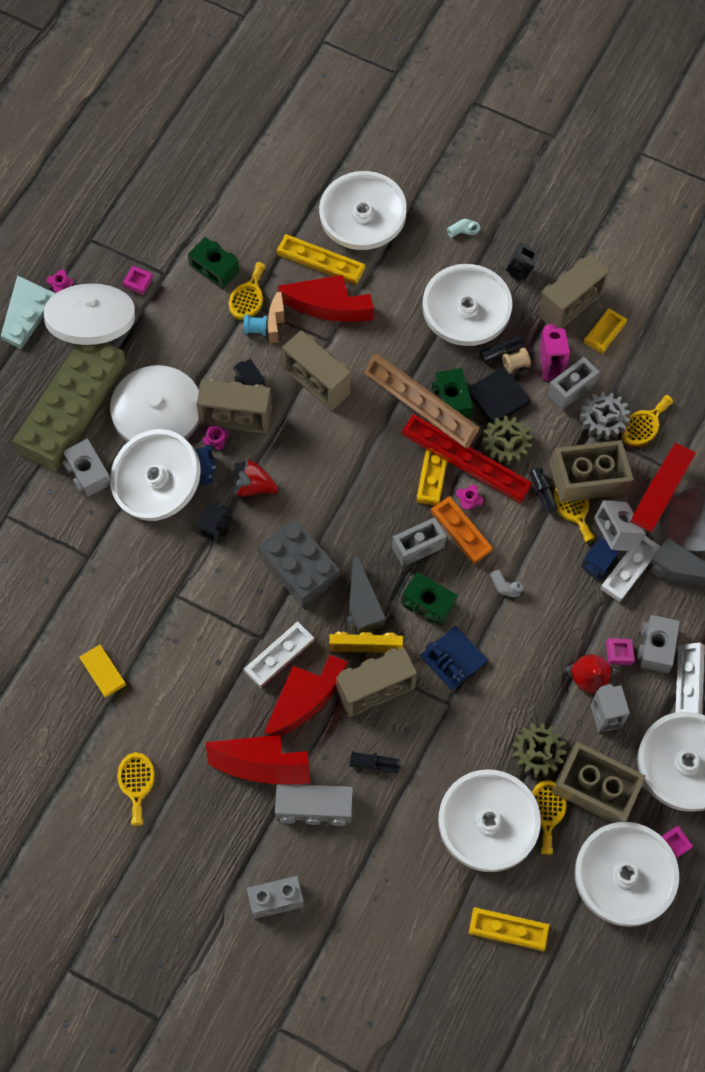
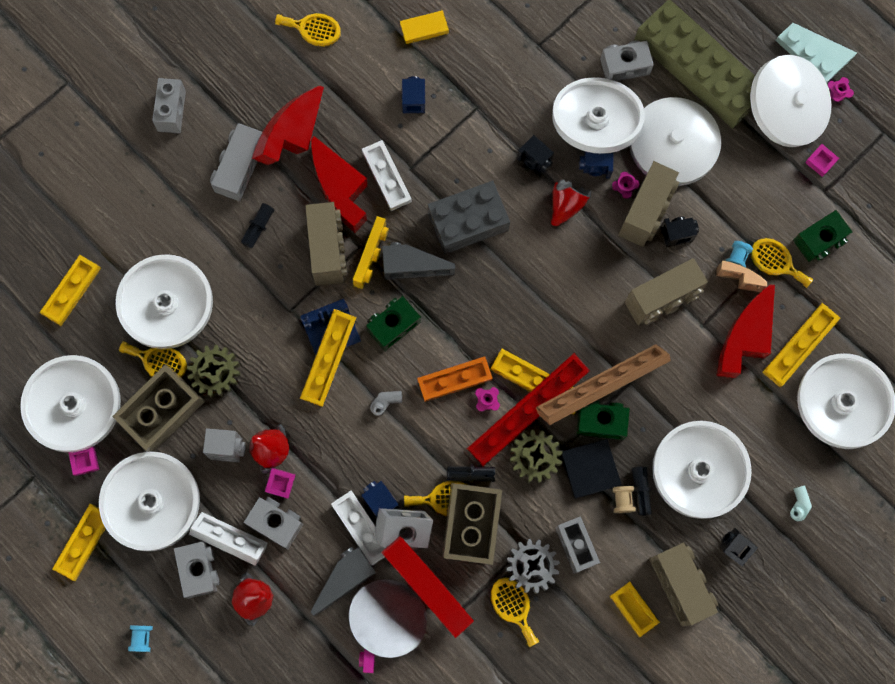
camera: 105 degrees right, 10 degrees up
(184, 654) = (413, 95): none -> dark blue brick
(418, 542) = (452, 330): light grey brick -> none
(485, 645) = (328, 357): none -> yellow tile
(553, 343) = (621, 539): dark pink torso -> none

